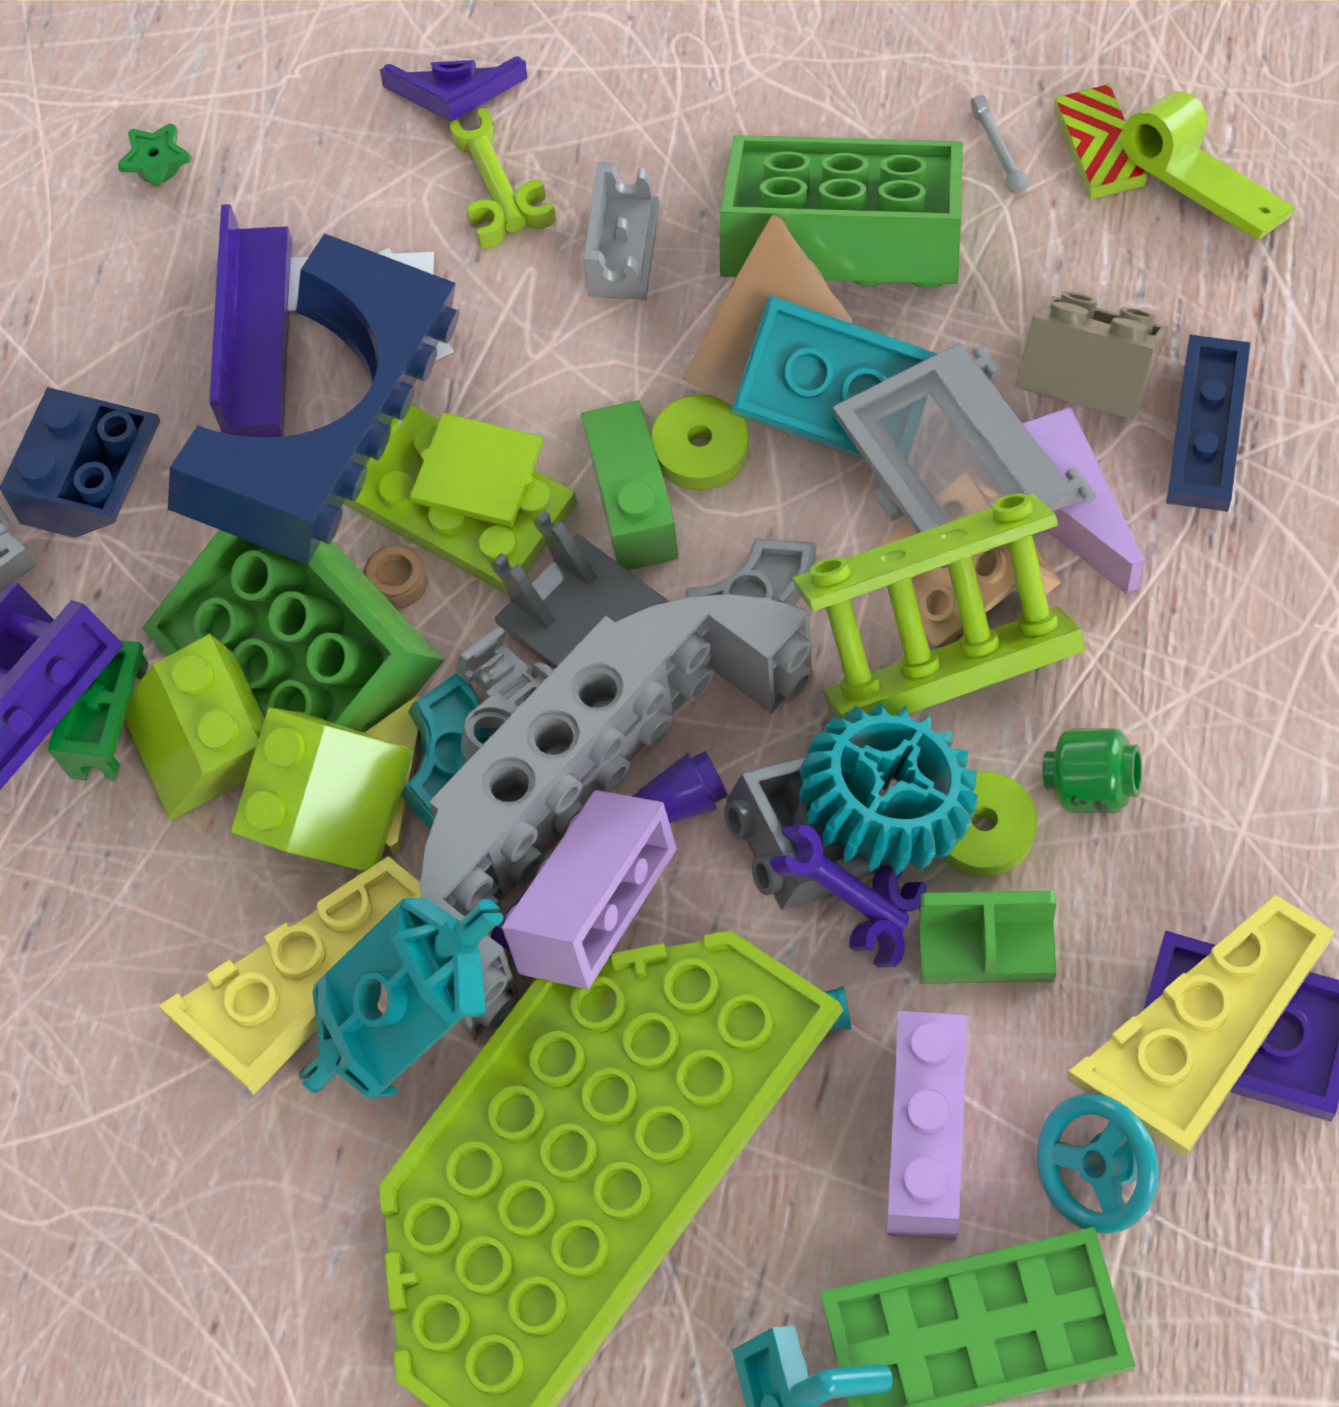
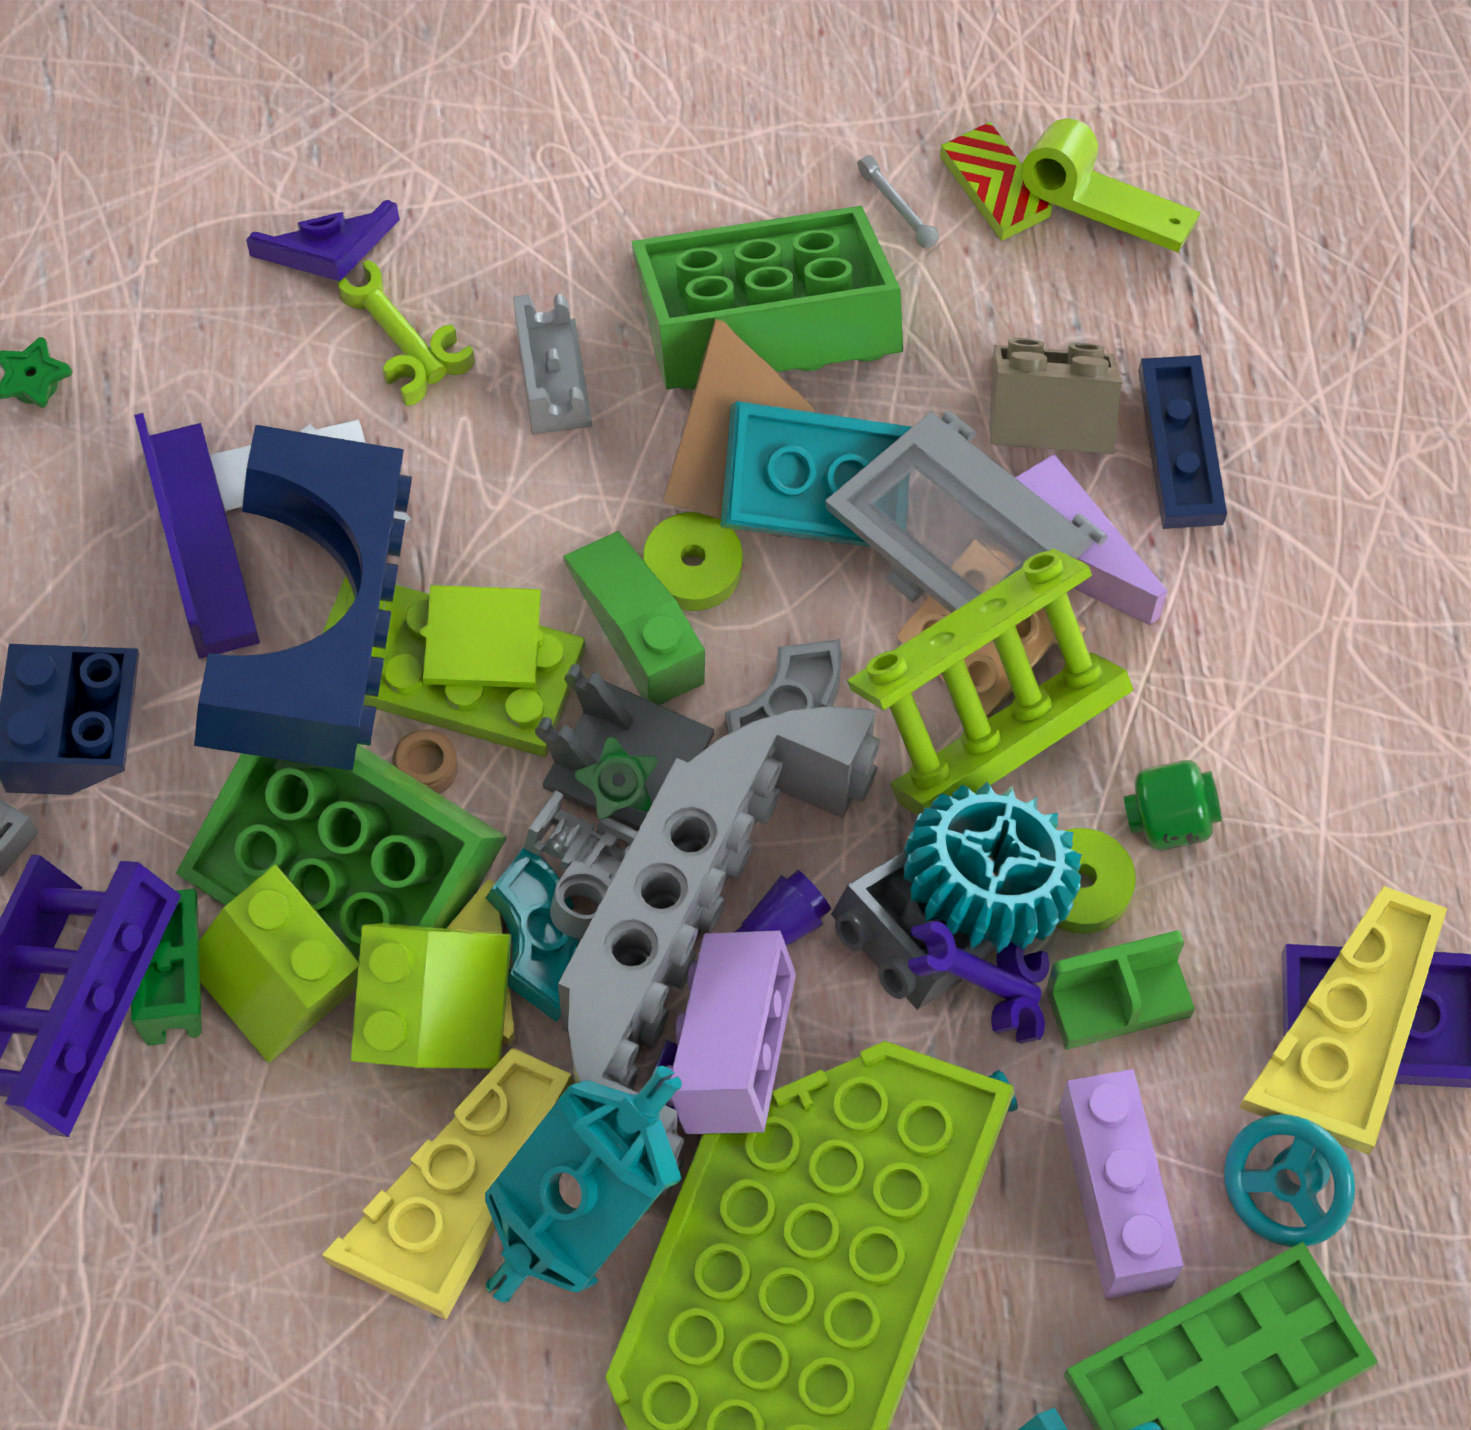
camera: 25 degrees left, 0 degrees up
(544, 621) = (612, 796): none -> green plate

